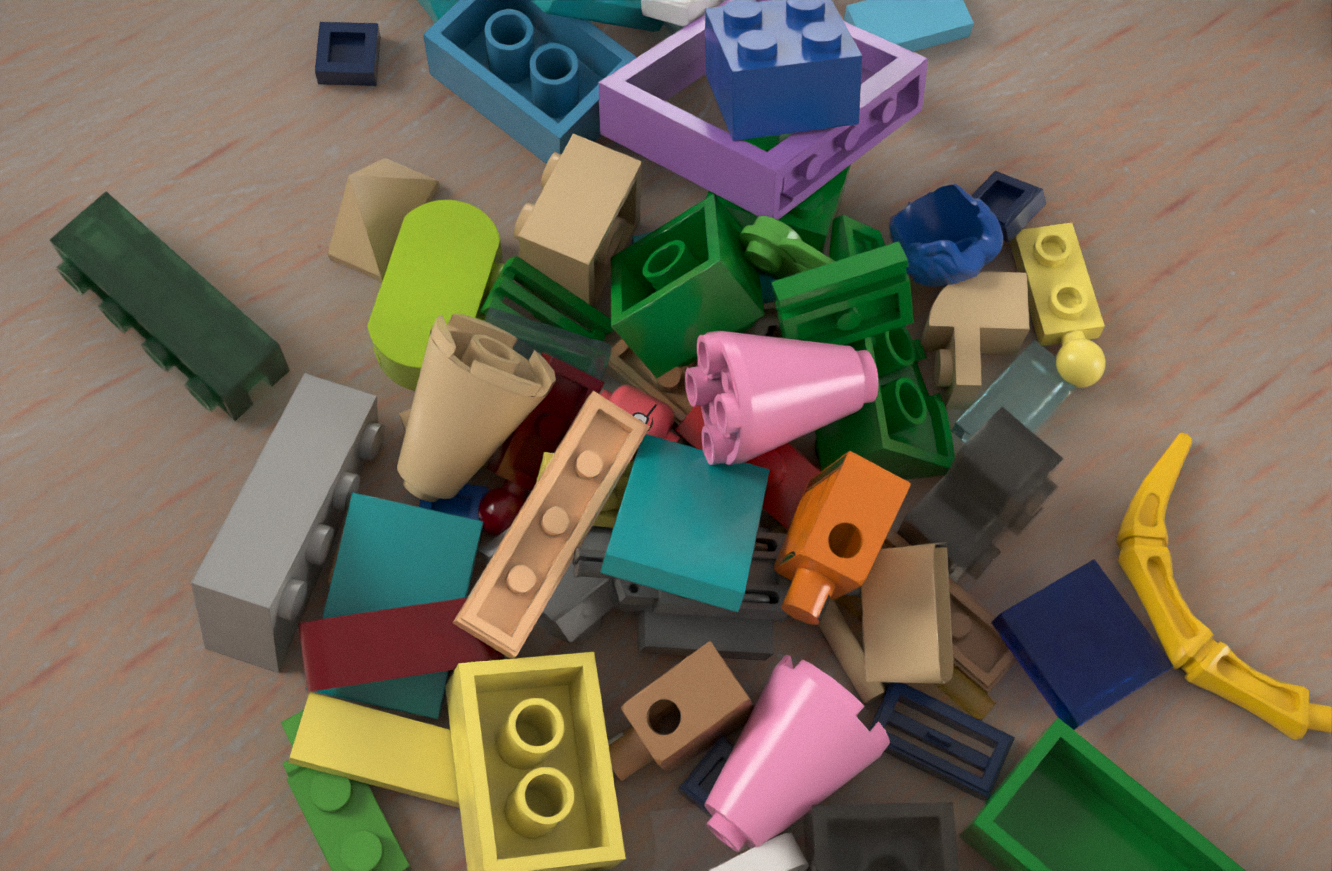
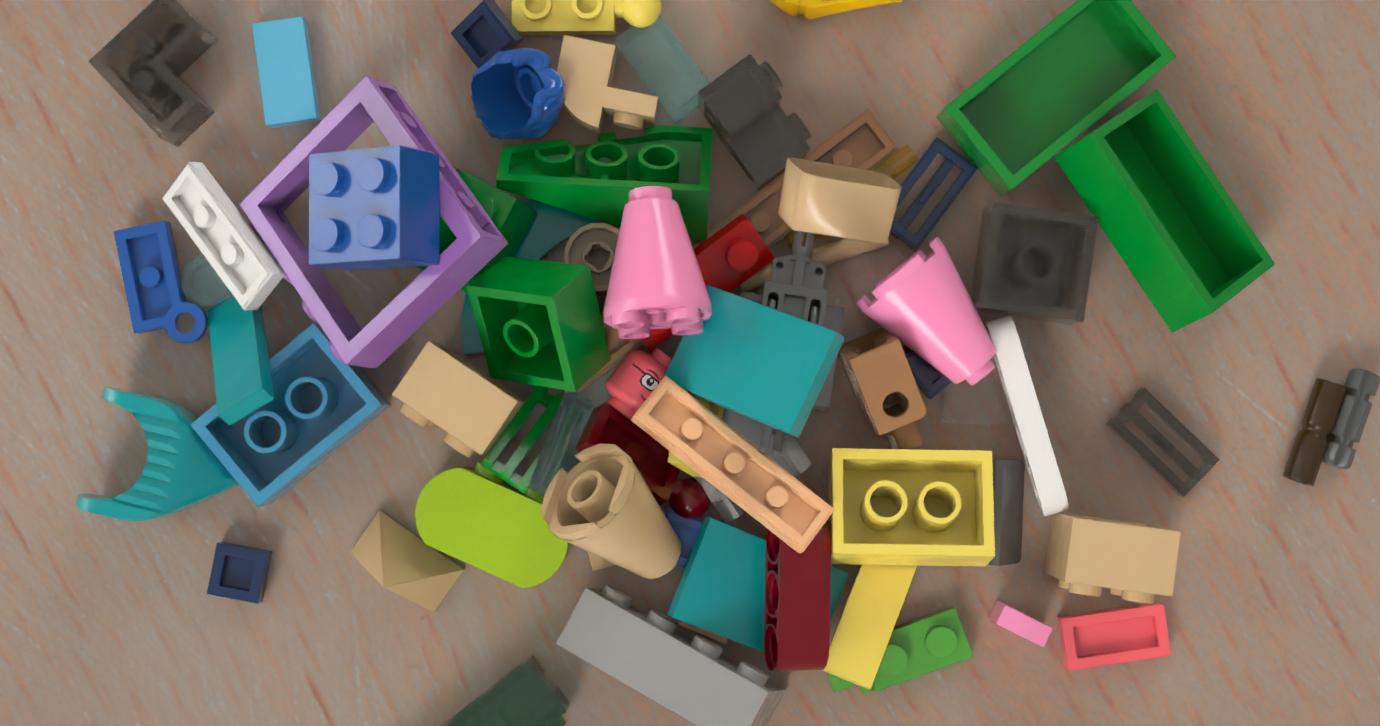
camera: 70 degrees left, 20 degrees up
(779, 249) = (527, 245): bright green plate -> none
(837, 533) = (787, 248): orange torso -> none
(846, 298) = (591, 199): green plate -> none
(1081, 645) = (875, 67): clear blue tile -> none

